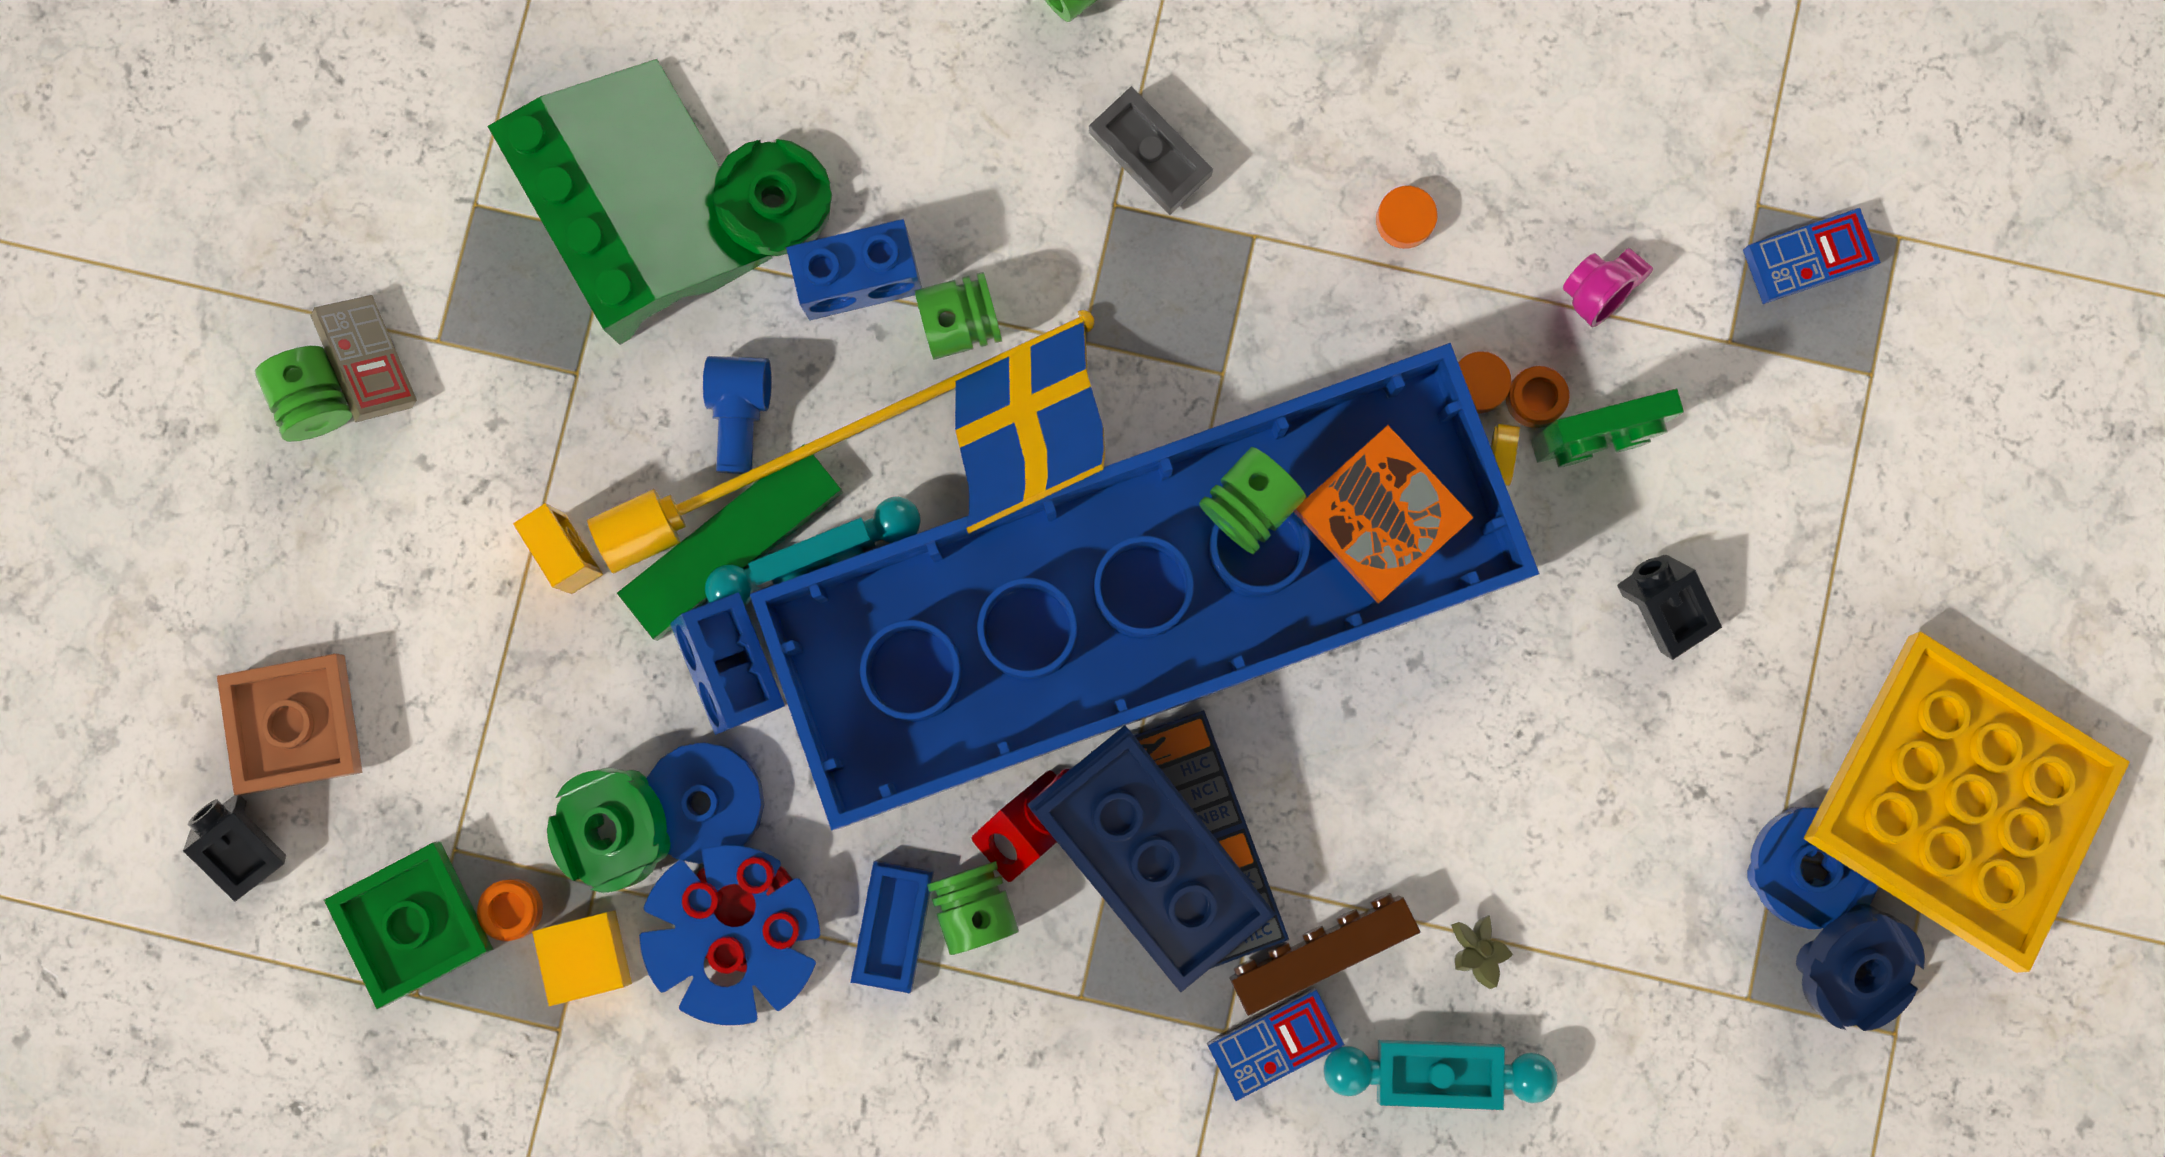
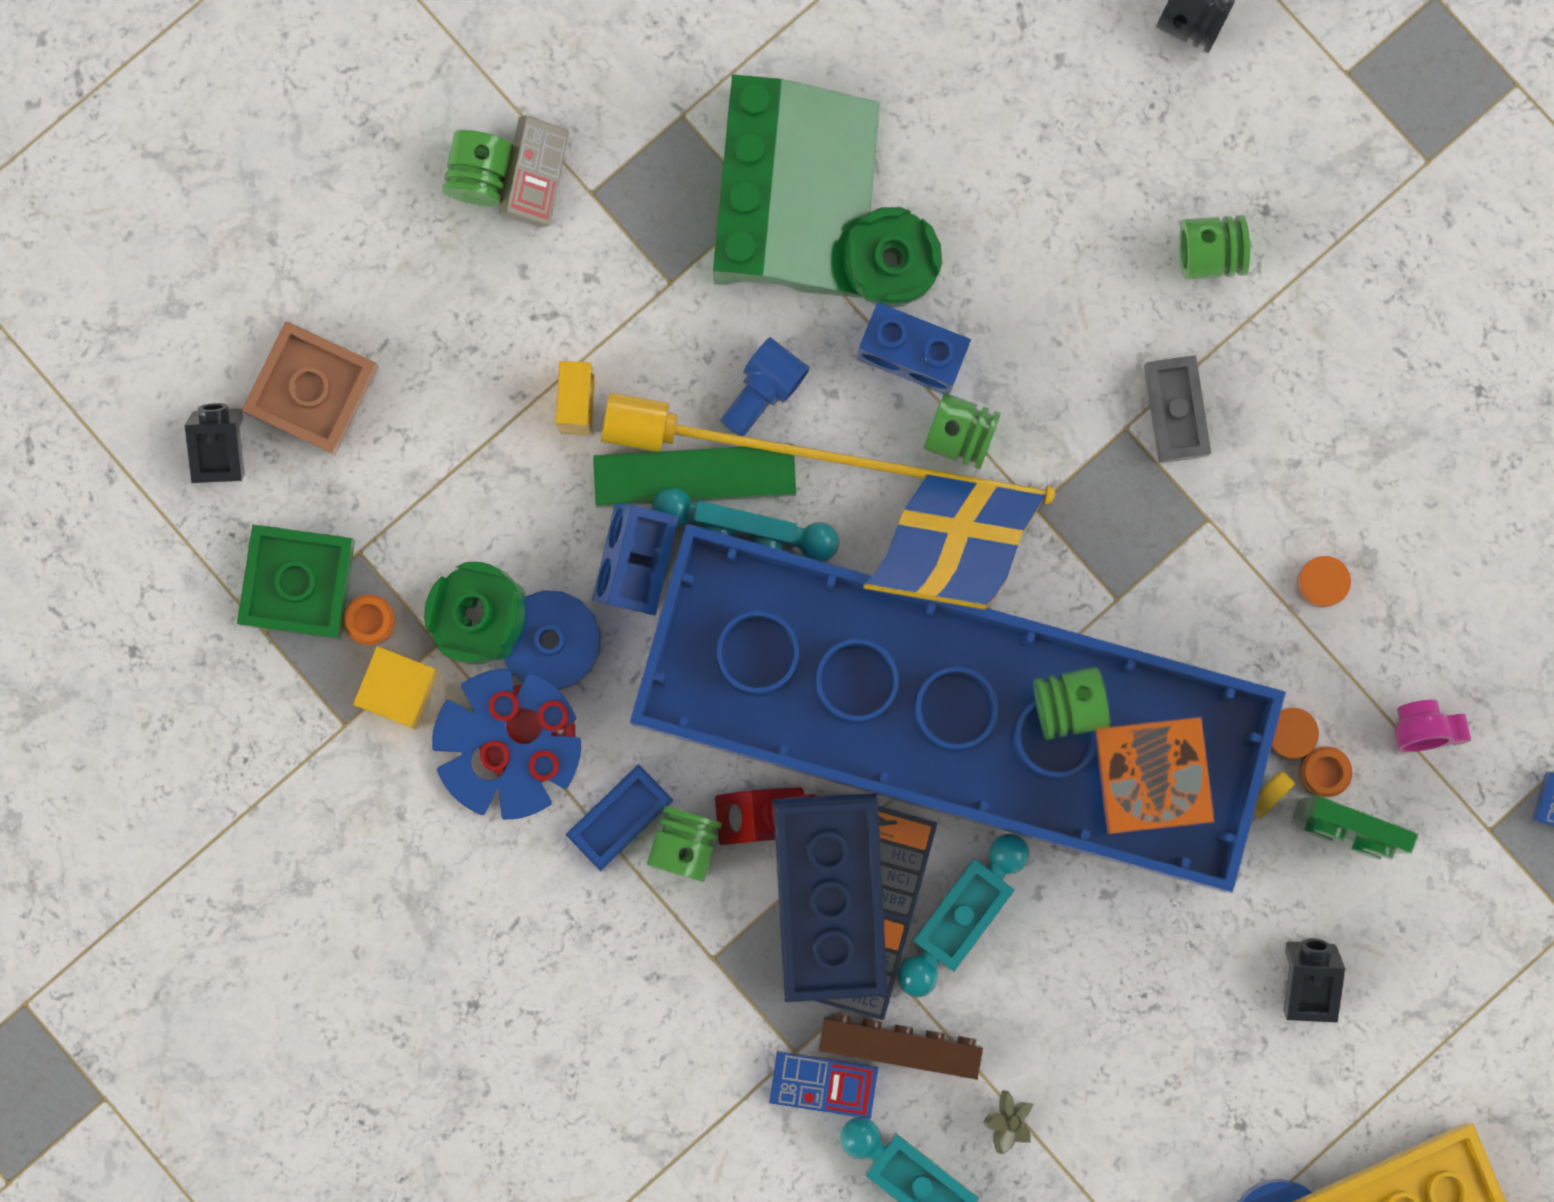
camera: 30 degrees right, 0 degrees up
(1292, 782) = (963, 915): none -> teal plate

